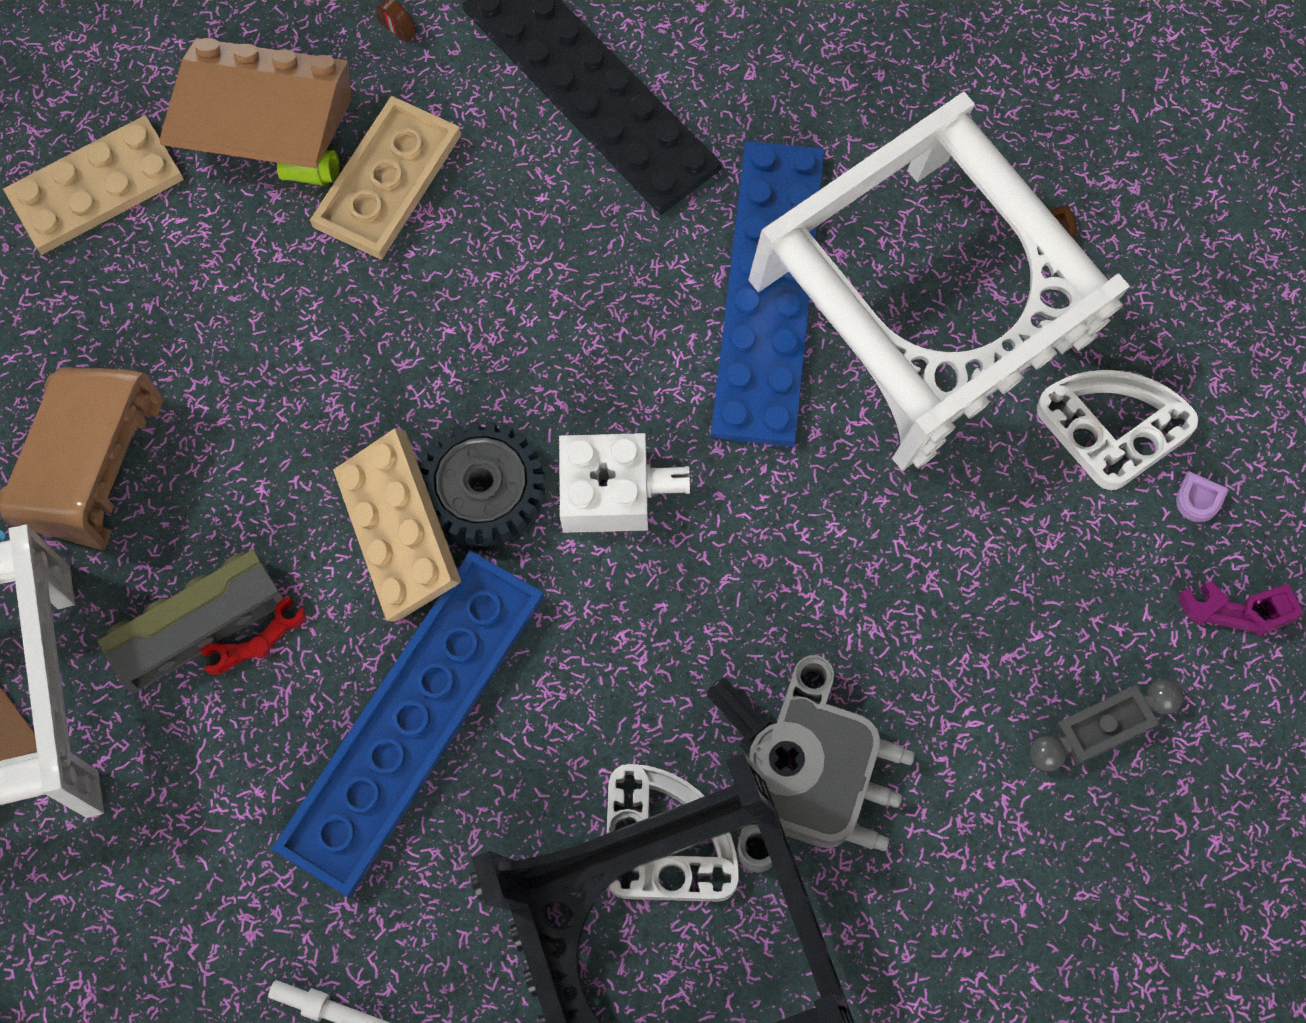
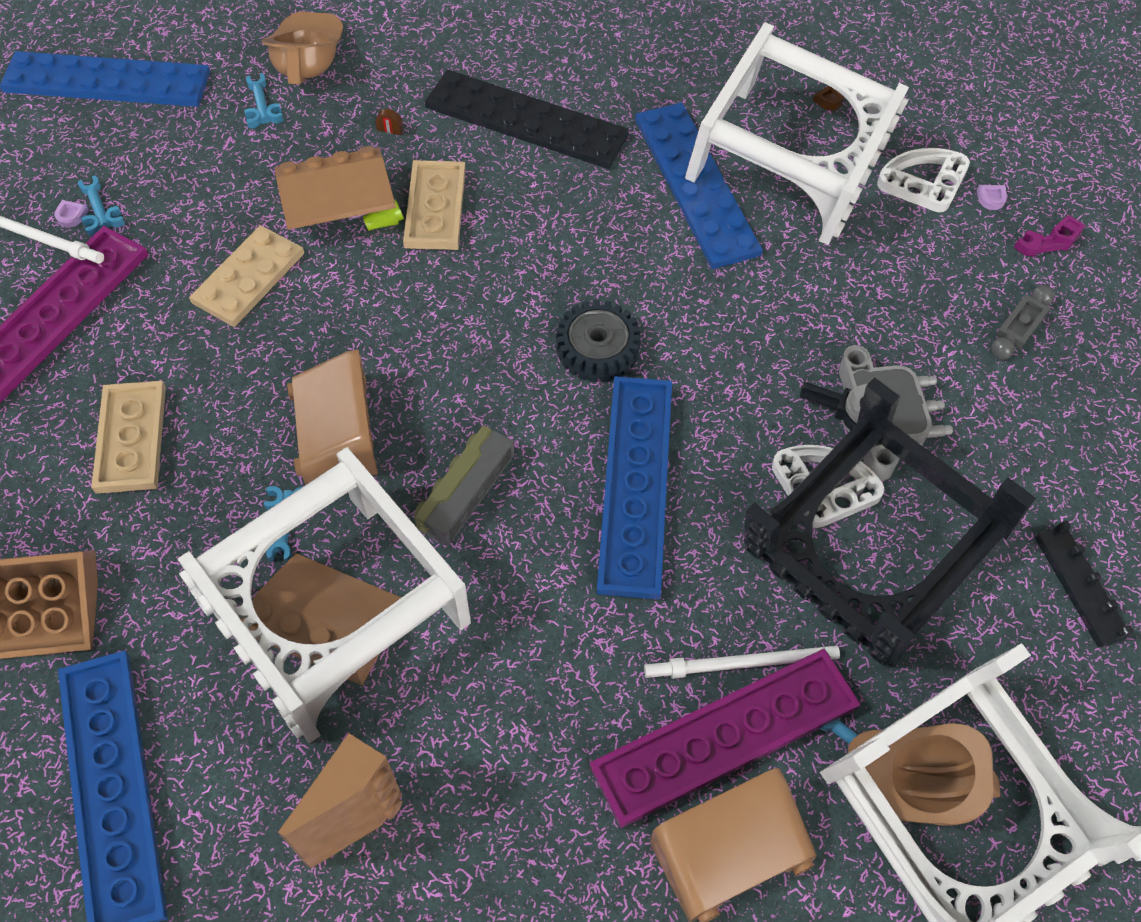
camera: 30 degrees left, 10 degrees down
(258, 646) = (513, 485): red piece -> none
(396, 525) = (561, 380): tan plate -> none
(623, 502) = (673, 308): white brick -> none

